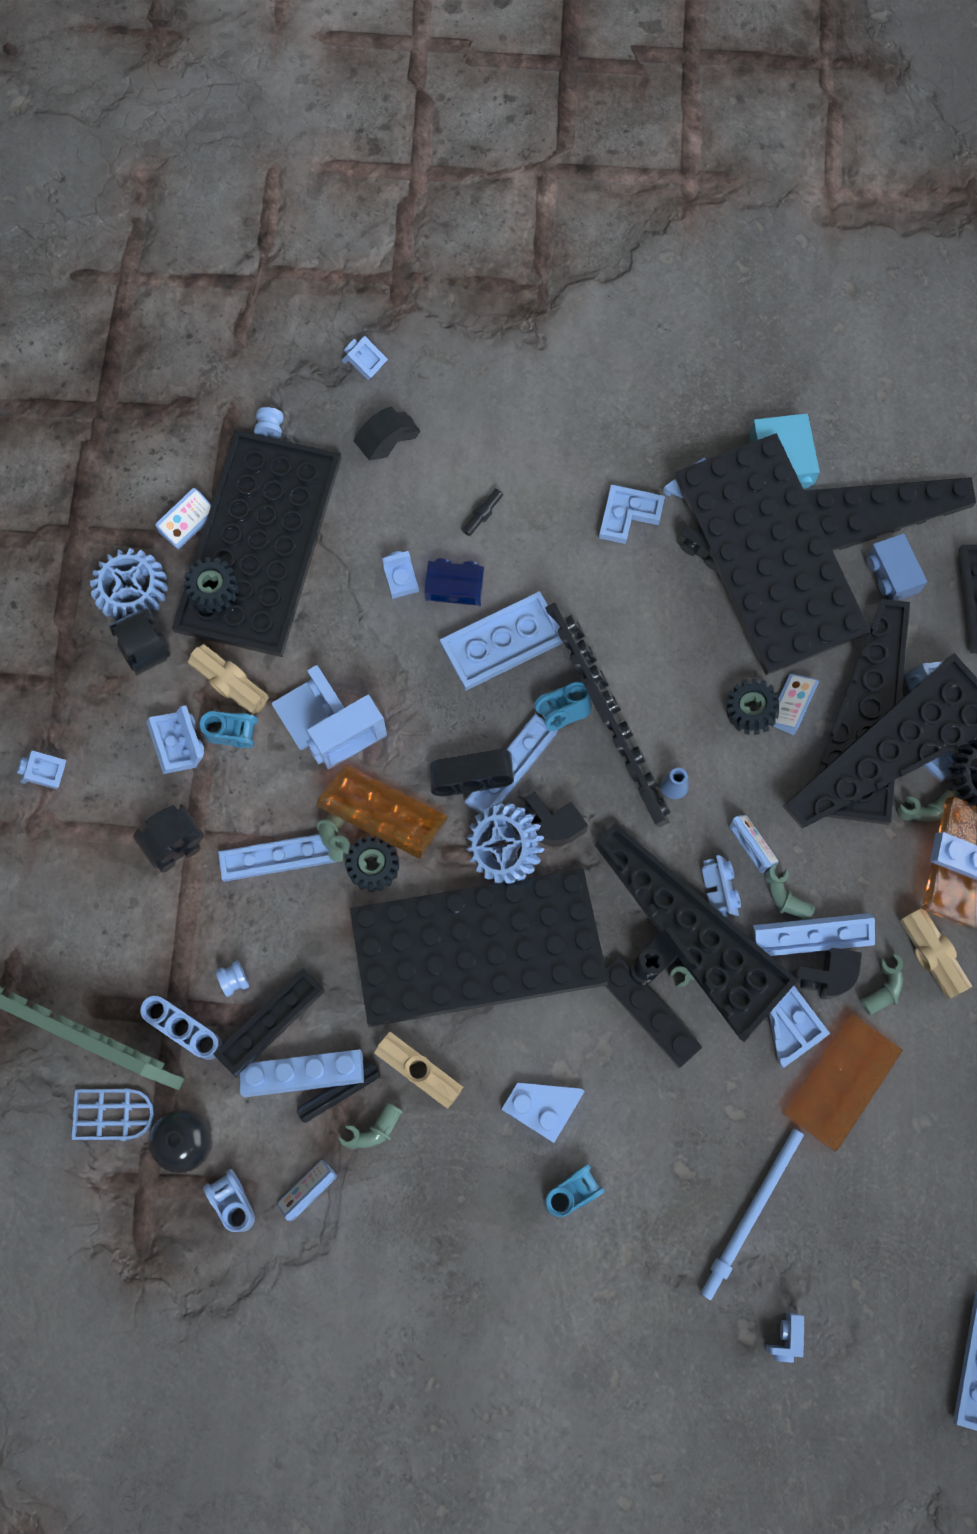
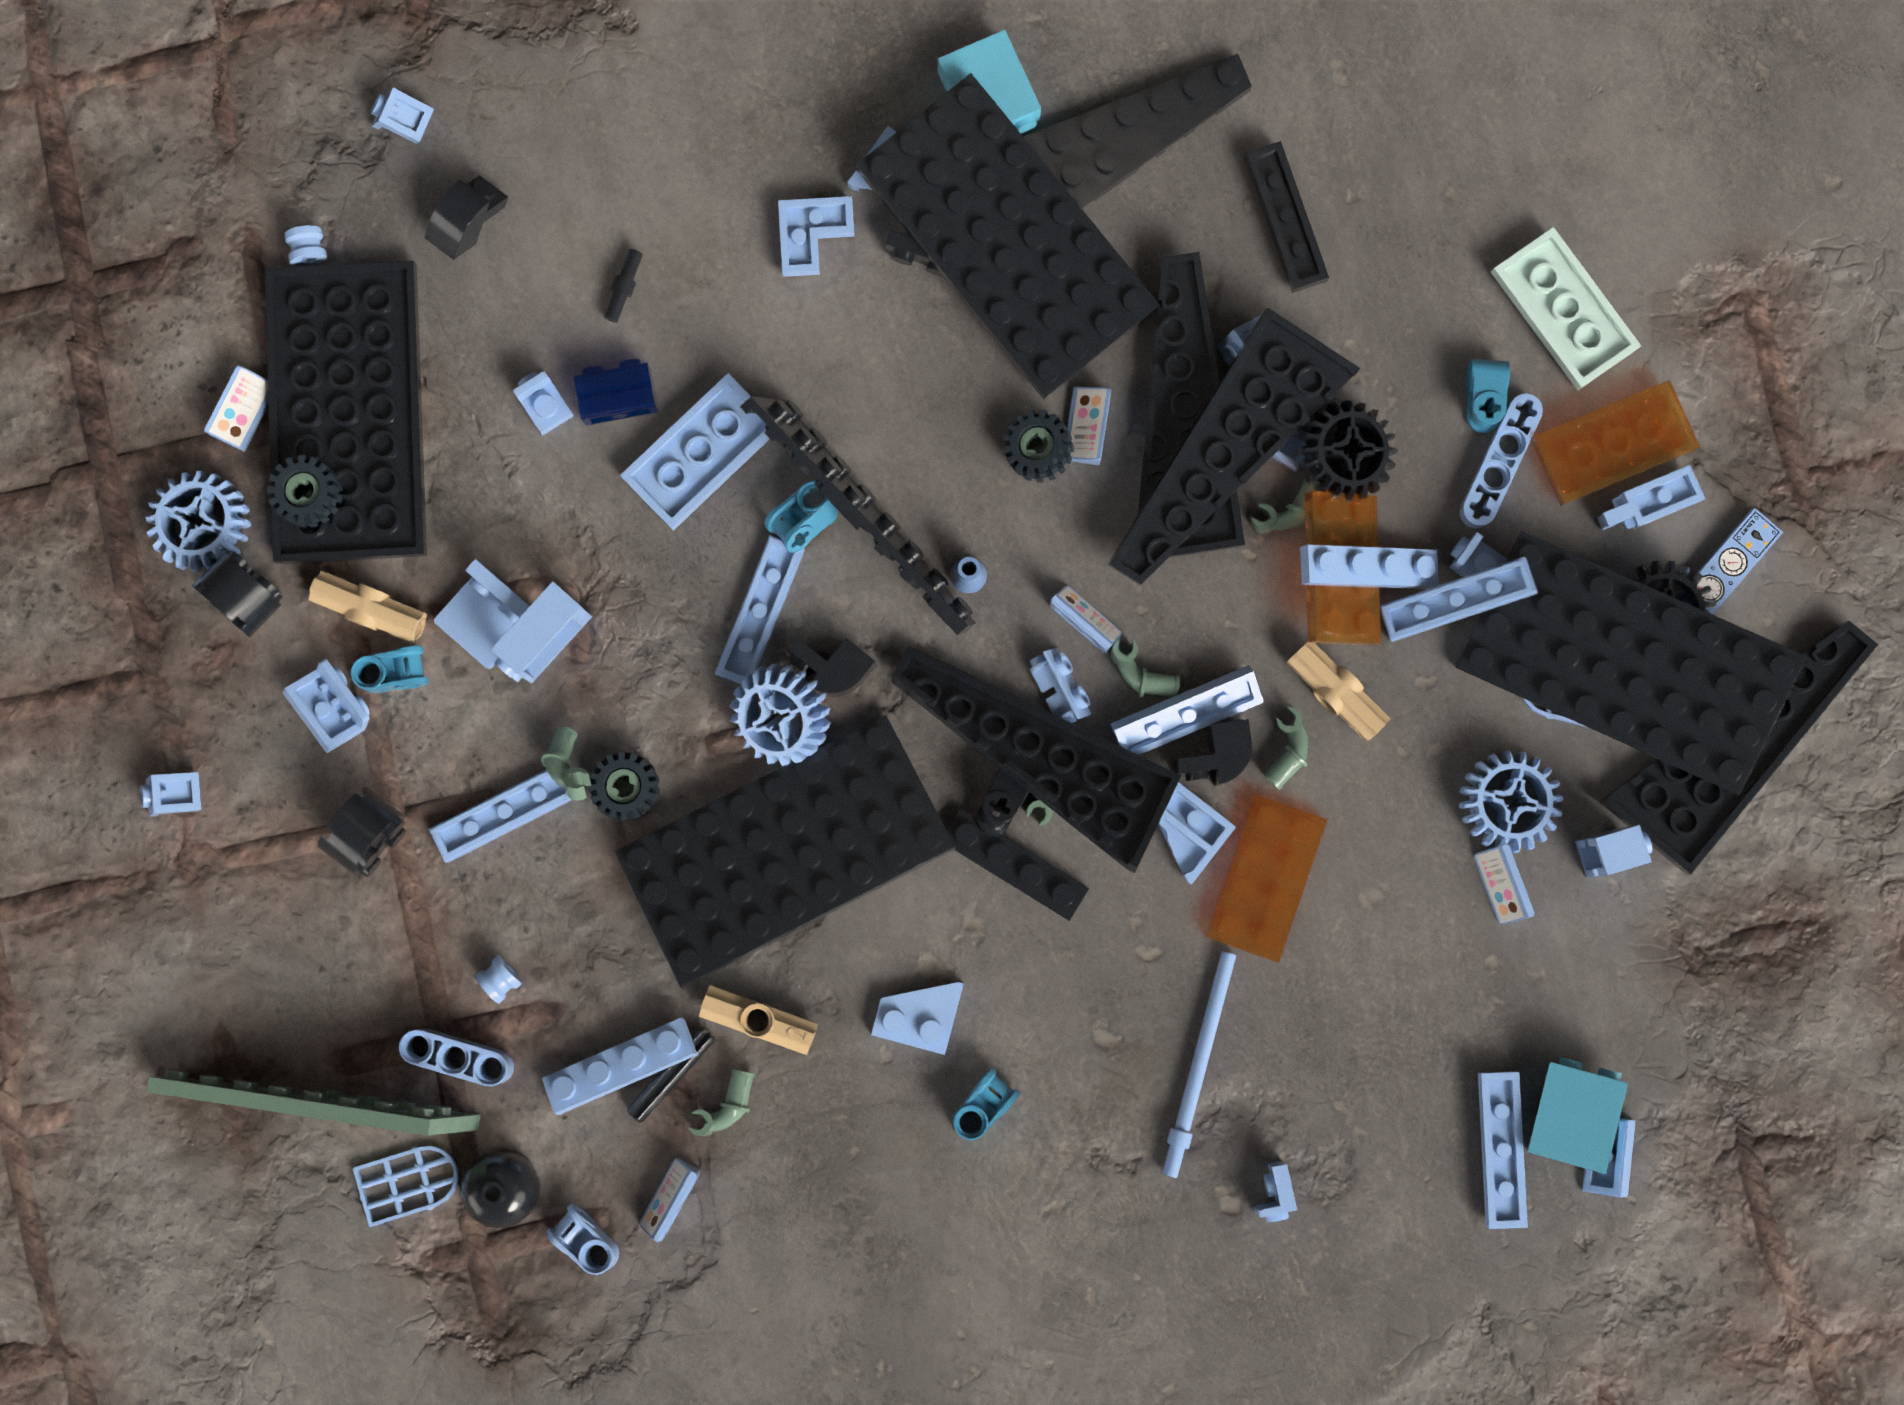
camera: 20 degrees left, 10 degrees up
(269, 1022) = (560, 1018): black plate -> none
(382, 811) = (616, 719): clear orange plate -> none
(471, 773) = (712, 637): black beam -> none
(896, 568) = (1171, 208): medium blue brick -> none

